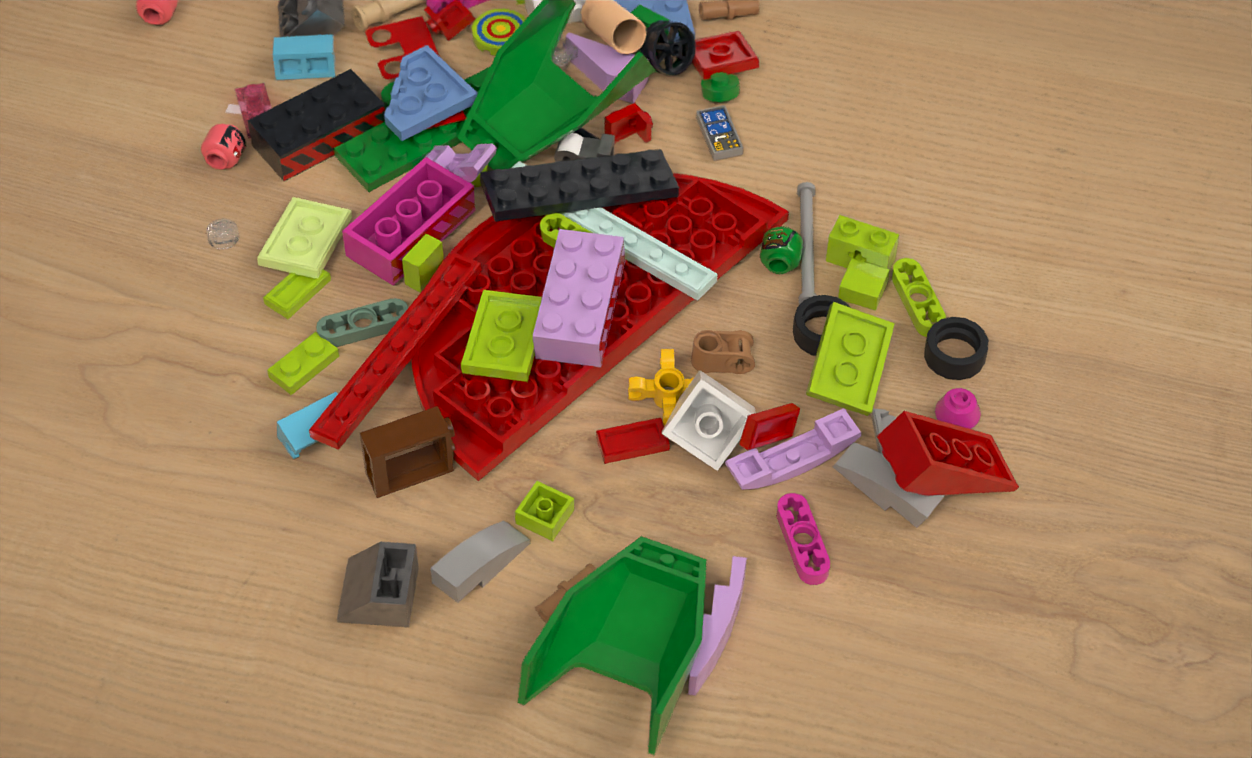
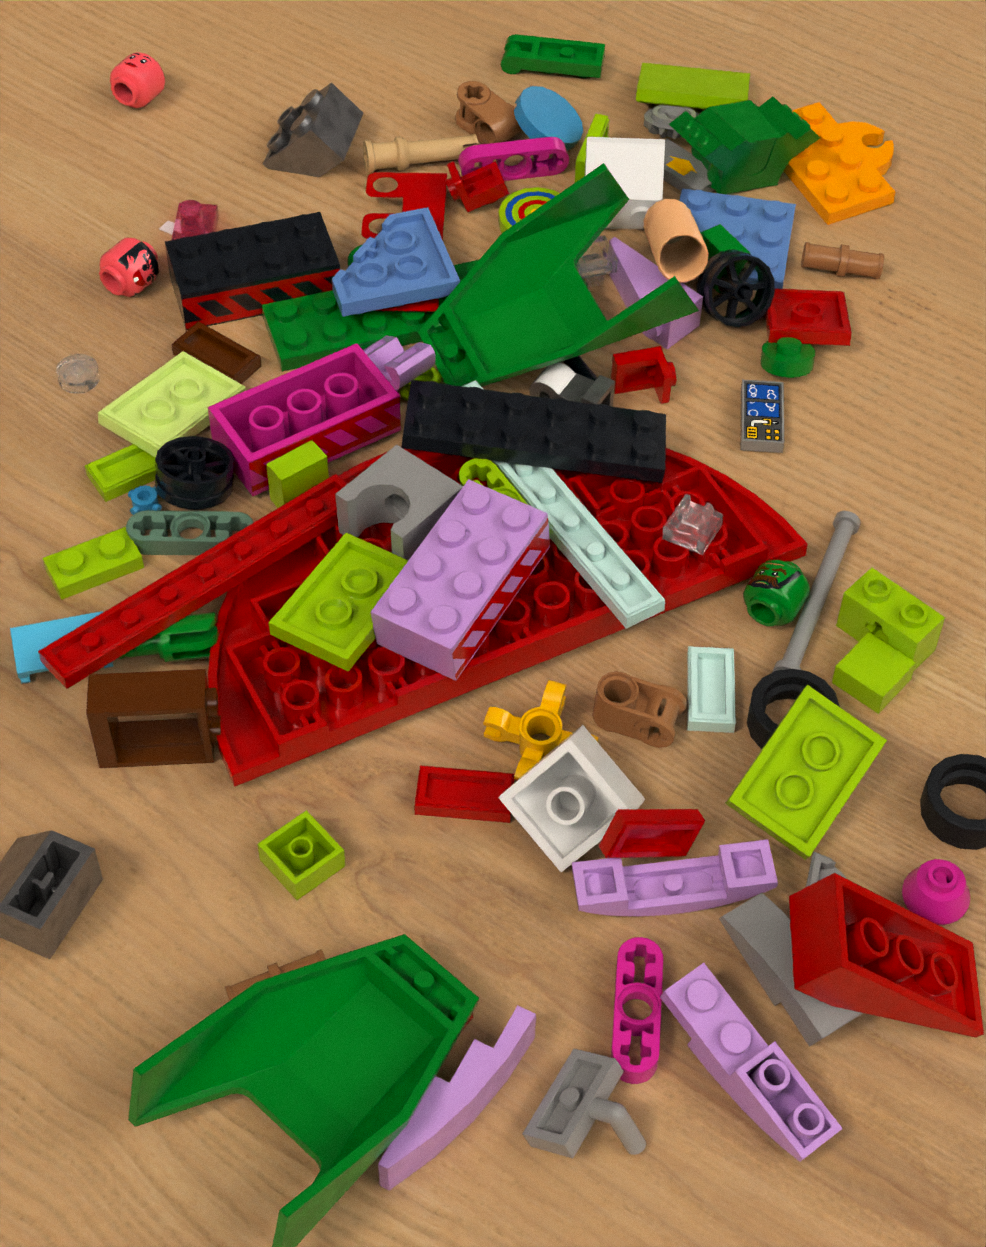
camera: 20 degrees right, 0 degrees up
(304, 57) = (278, 186): medium azure hinge -> none
(317, 190) = (218, 352): none -> reddish brown tile
(317, 309) = (144, 499): none -> dark azure piece
(352, 279) = (190, 470): none -> black wheel
(400, 395) = (182, 641): none -> green arm
(477, 560) = (181, 894): light grey slope -> none
(513, 252) = (399, 492): none -> light grey piece
(712, 219) = (692, 525): none -> clear tile
(764, 325) = (710, 689): none -> light aqua tile
(791, 604) = (574, 1104): none -> light grey plate
(890, 553) = (747, 1068): none -> lavender slope
(921, 285) = (953, 697): lime beam -> none

